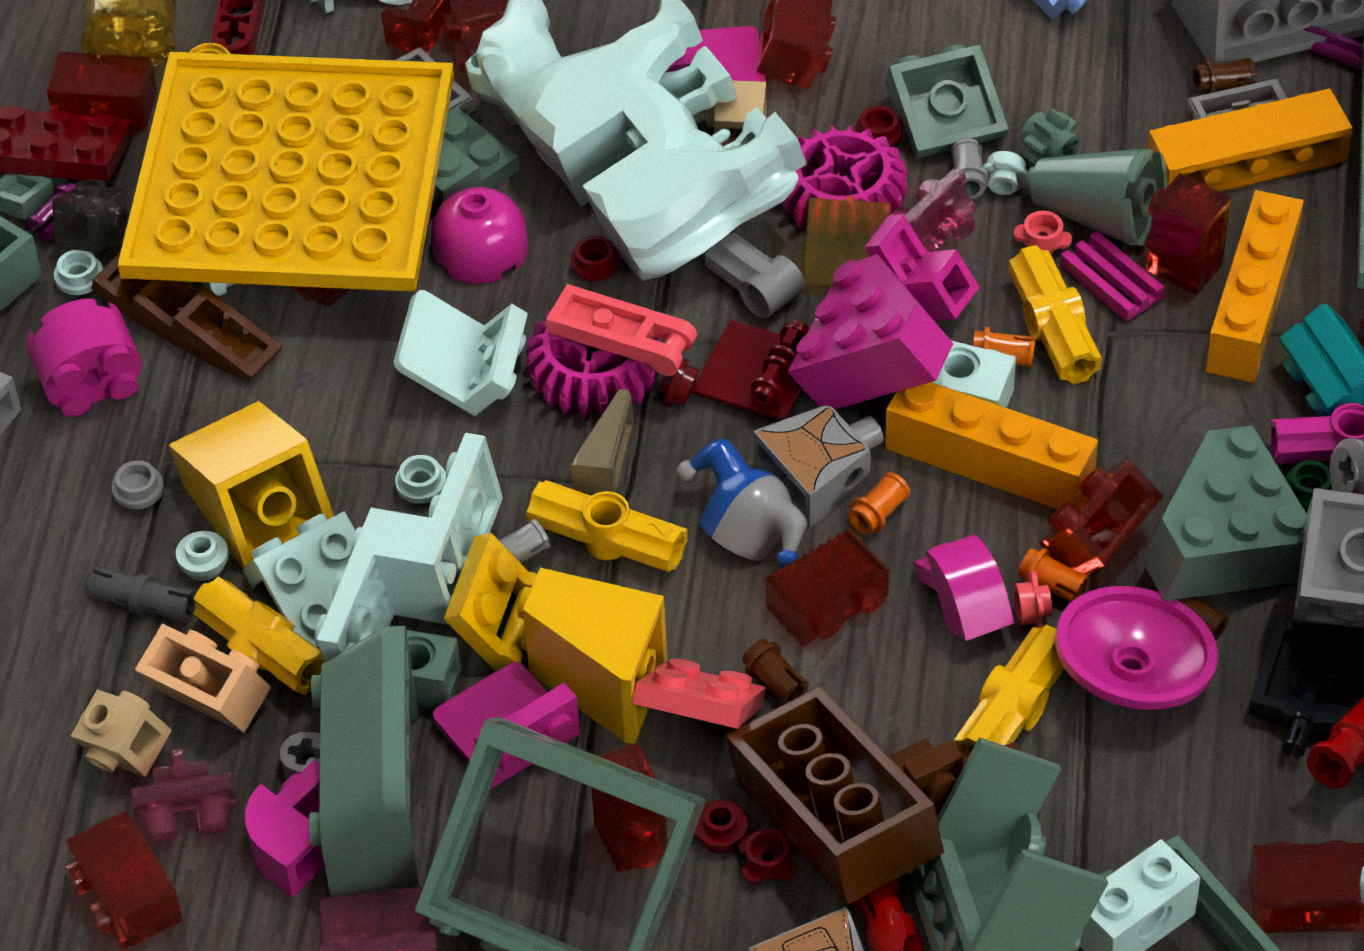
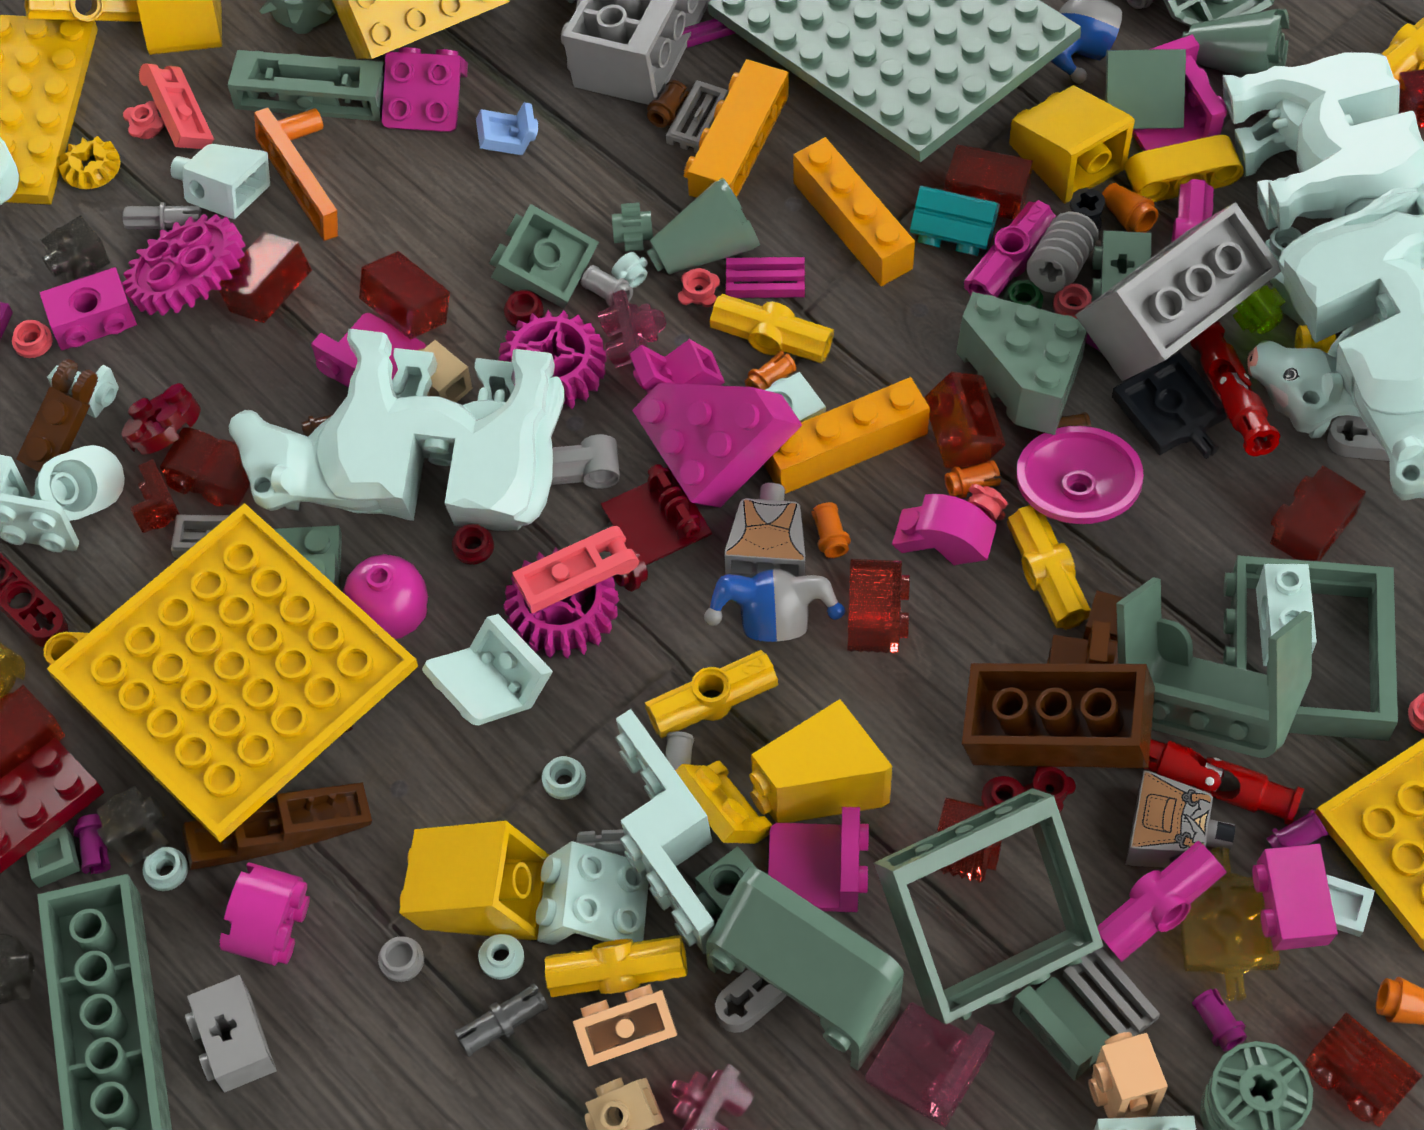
camera: 50 degrees left, 10 degrees up
(281, 831) = (794, 1069): dark pink brick -> none
(603, 453) = (652, 655): dark tan slope -> none
(700, 695) = (913, 732): coral plate -> none
(767, 664) = (912, 682): reddish brown pin -> none
(838, 234) = (607, 393): clear yellow piece -> none
(1187, 233) = (788, 213): clear red brick -> none

